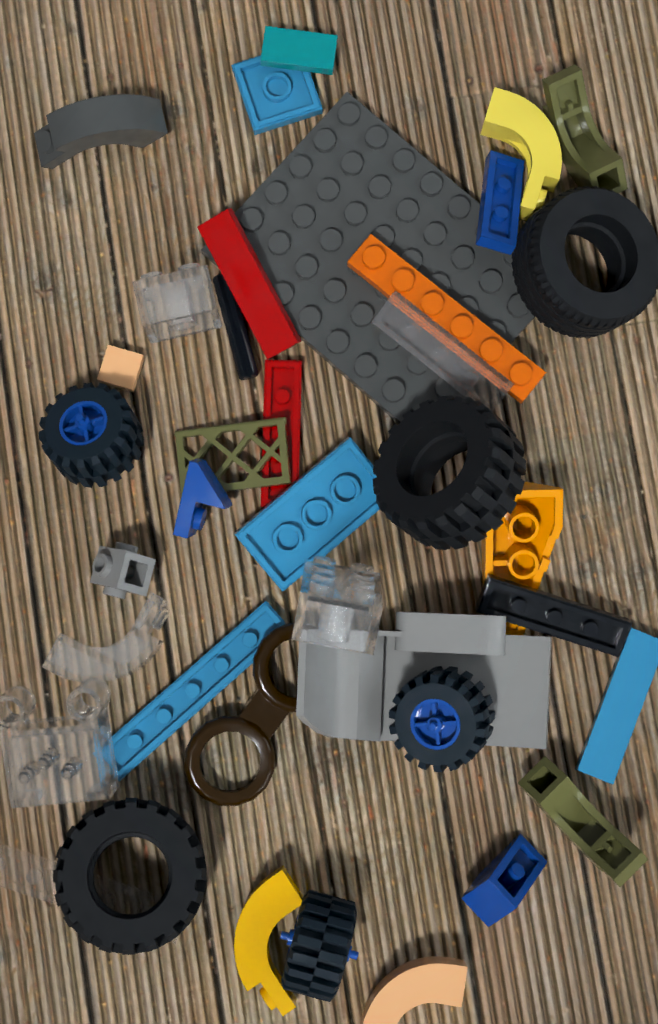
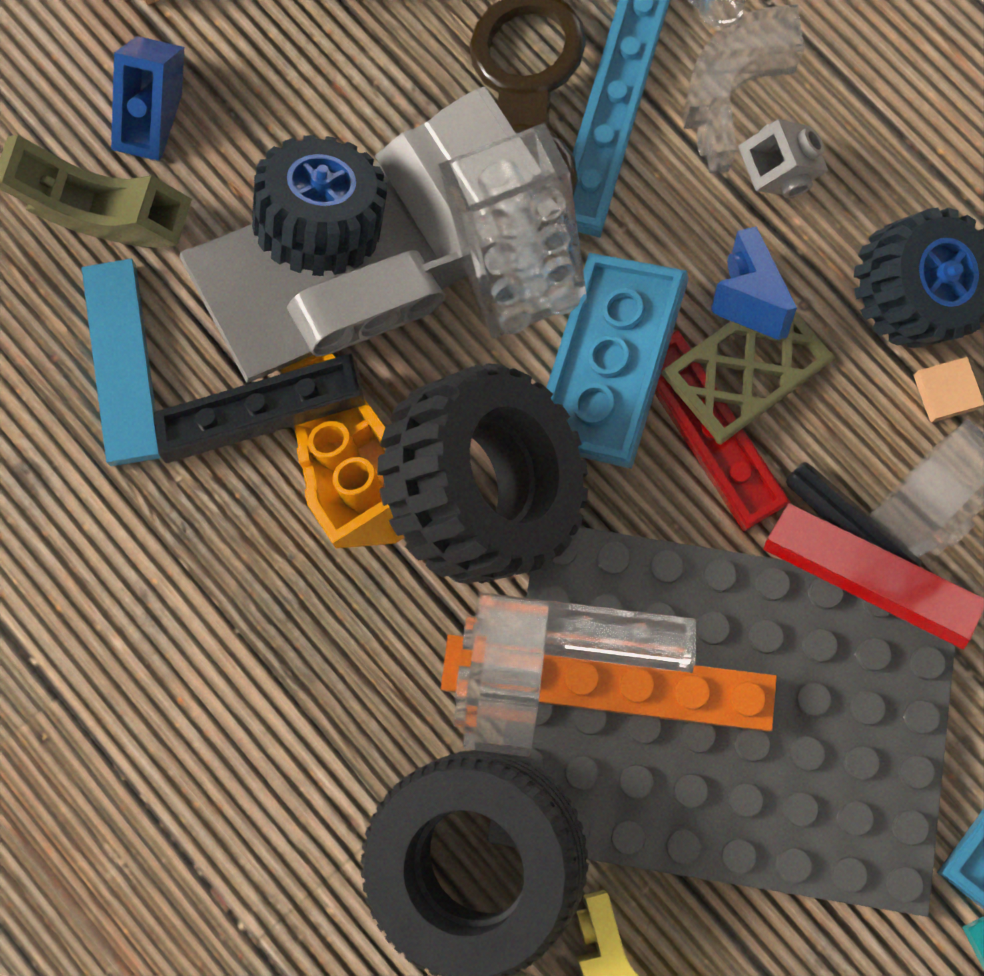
camera: 150 degrees right, 5 degrees down
(500, 202) = (635, 883): blue plate -> none
(508, 347) = (502, 687): none -> clear brick

